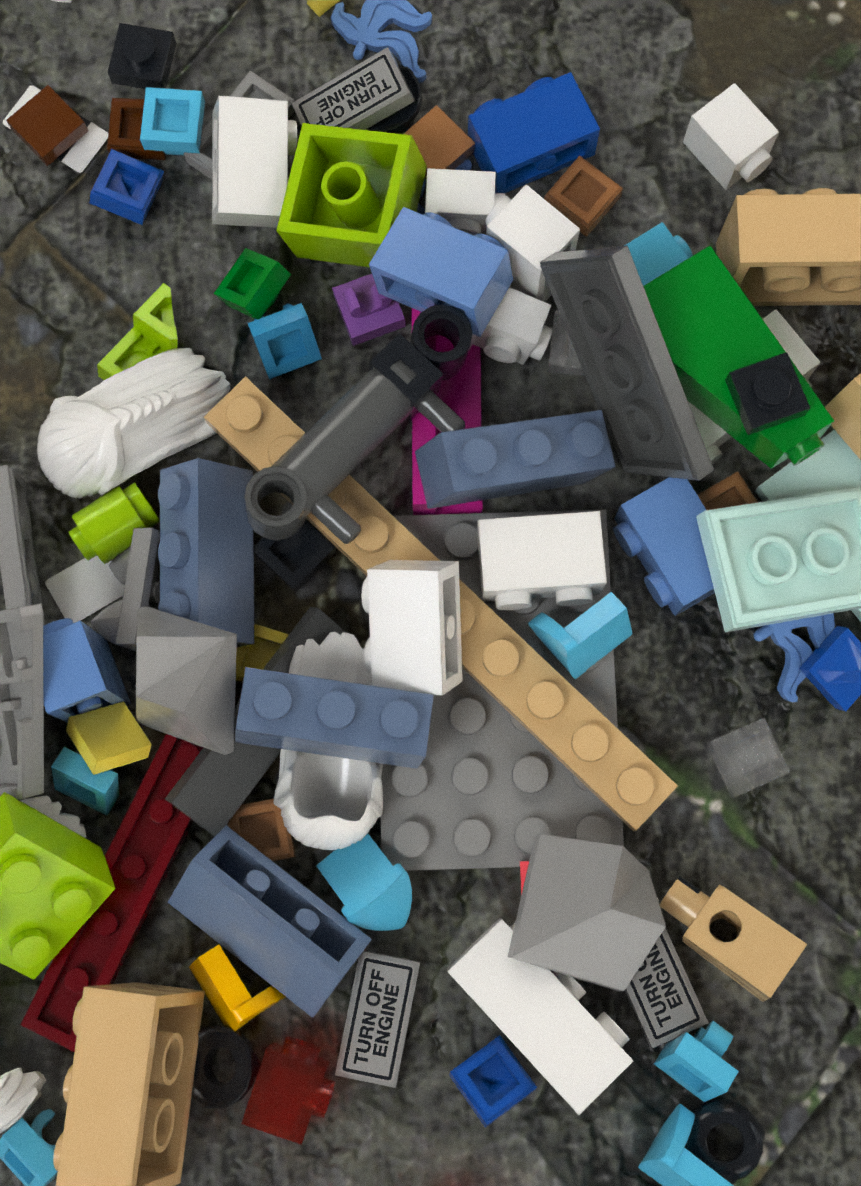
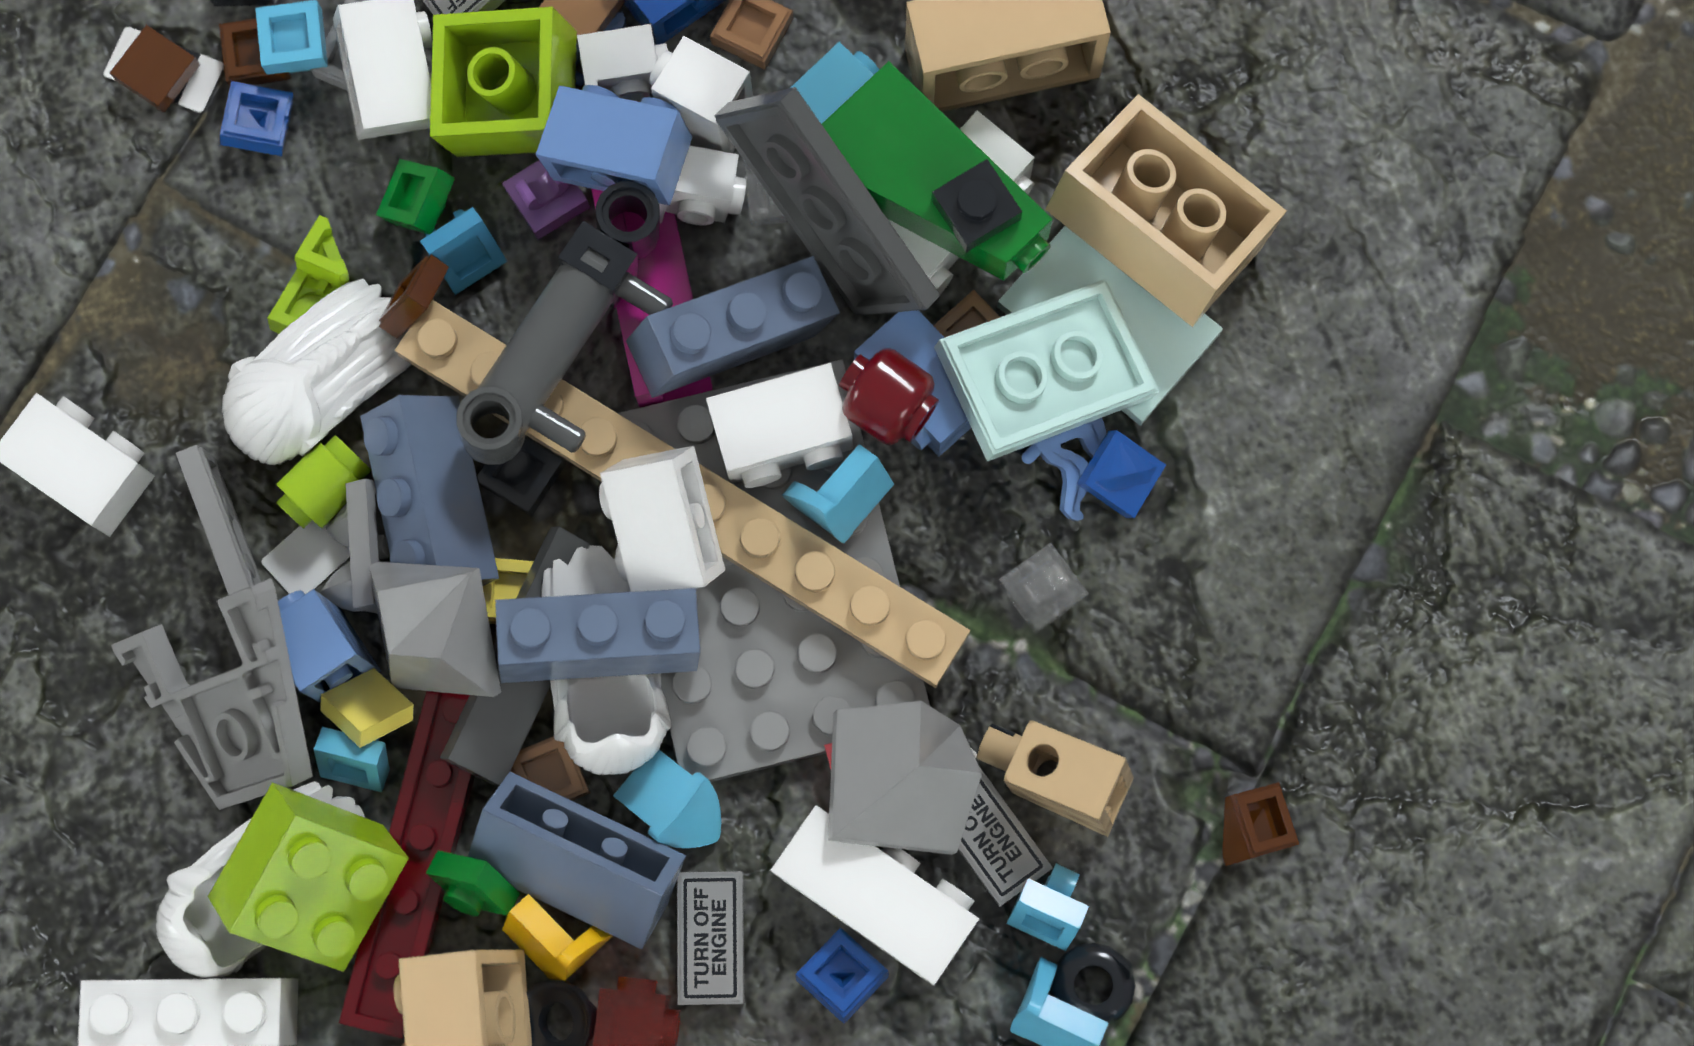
camera: 10 degrees left, 0 degrees up
(169, 923) = (472, 884): none -> green plate
(231, 371) = (413, 296): none -> reddish brown tile
(647, 553) = (888, 396): none -> dark red head

